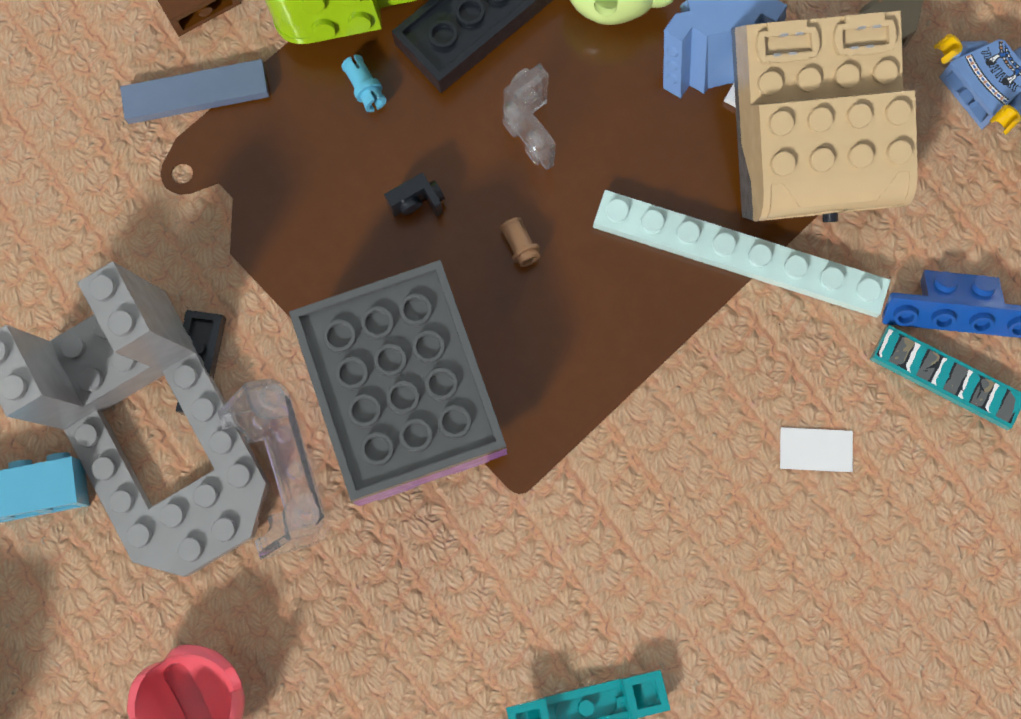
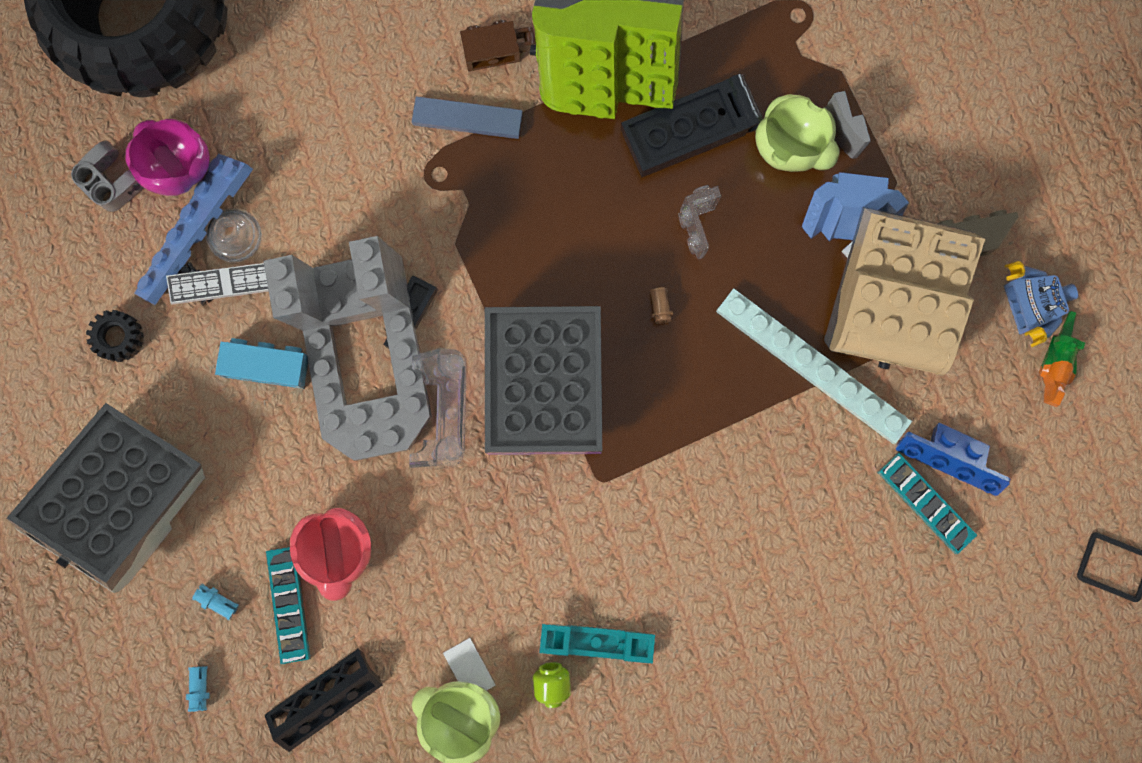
camera: 15 degrees right, 5 degrees up
(366, 88) = (589, 156): medium azure pin -> none
(409, 196) = (594, 246): black bracket -> none
(816, 449) = (816, 521): white sticker -> none

